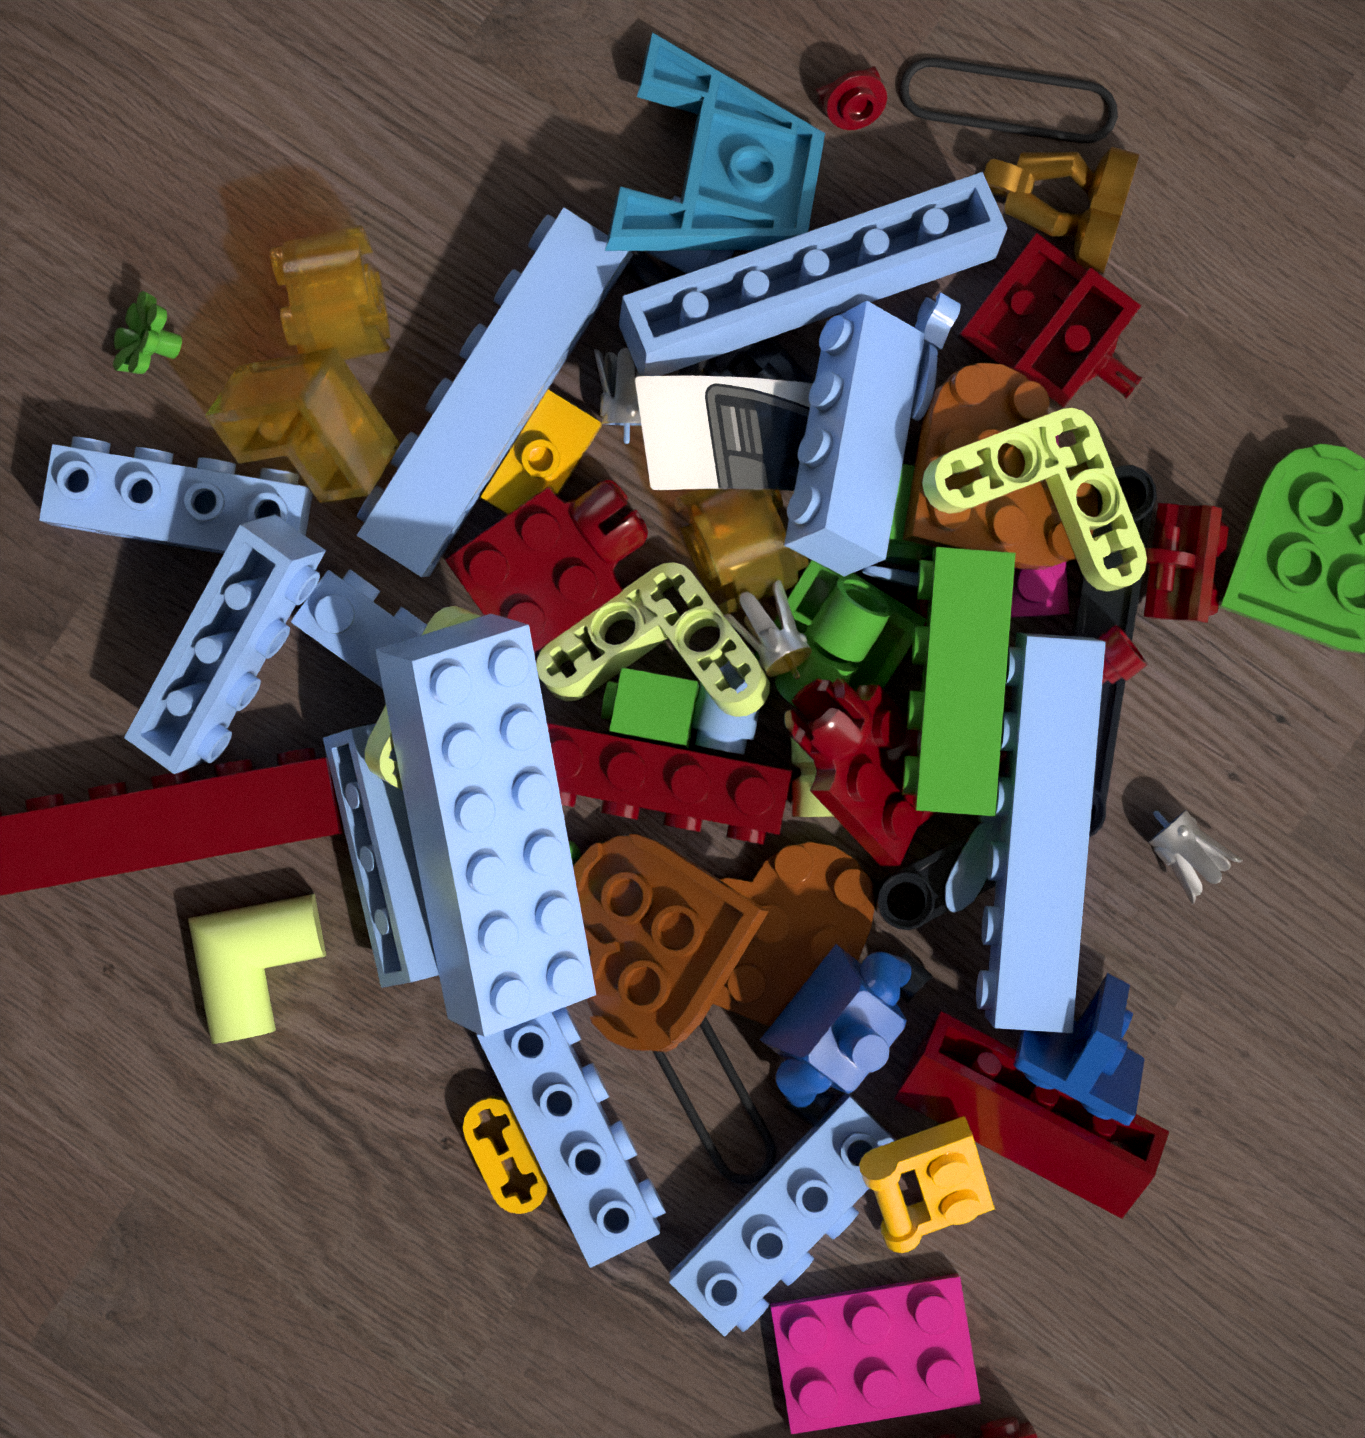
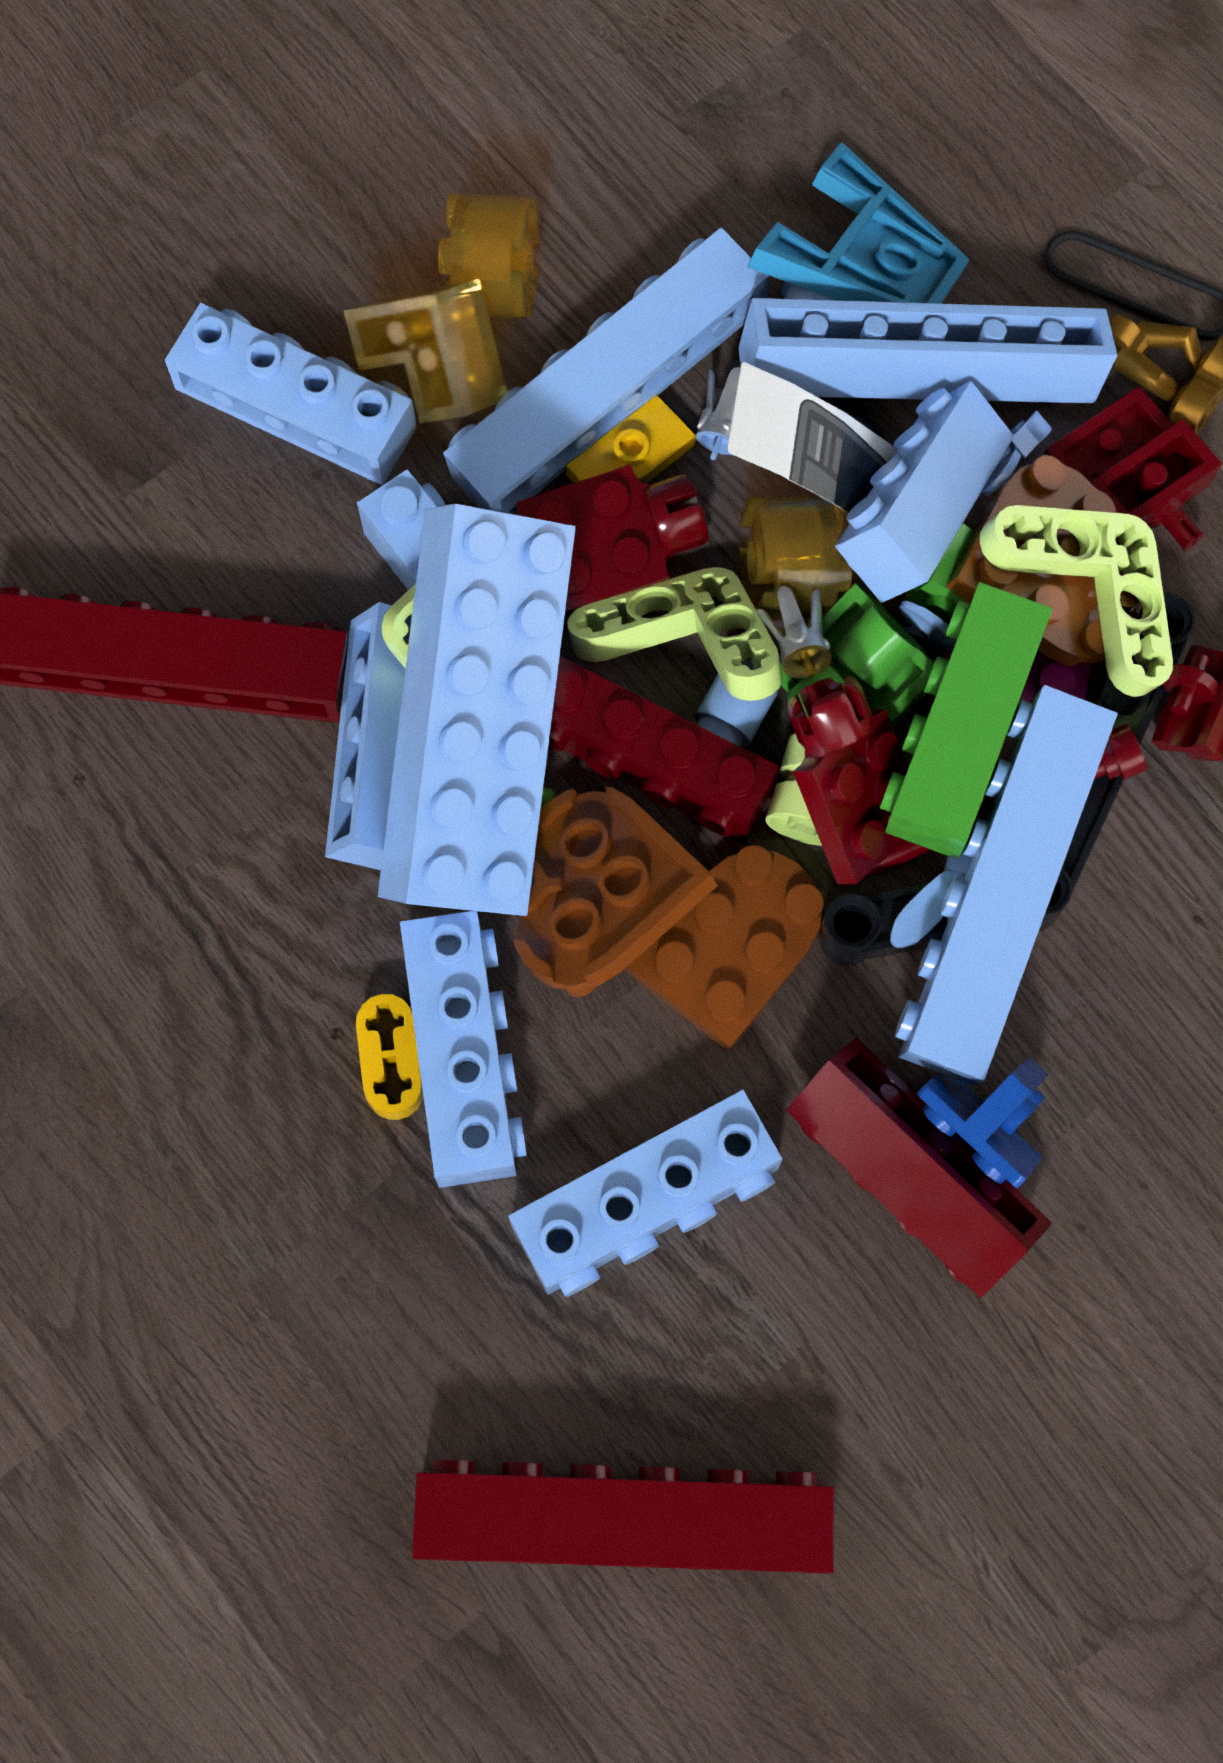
camera: 15 degrees right, 15 degrees down
(144, 336) = (316, 253): bright green plant -> none
(226, 643) = (289, 501): light blue brick -> none
(232, 956) = (201, 793): yellowish green brick -> none
(651, 708) = (666, 674): bright green brick -> none
(746, 1100) = (582, 1073): black piece -> none
(841, 1026) = (751, 1017): blue torso -> none
(854, 99) = (1003, 240): dark red plate -> none
(875, 1353) = (691, 1366): dark pink plate -> none
(947, 1177) = (817, 1198): yellow plate -> none
(1184, 845) = (1138, 951): flat silver piece -> none

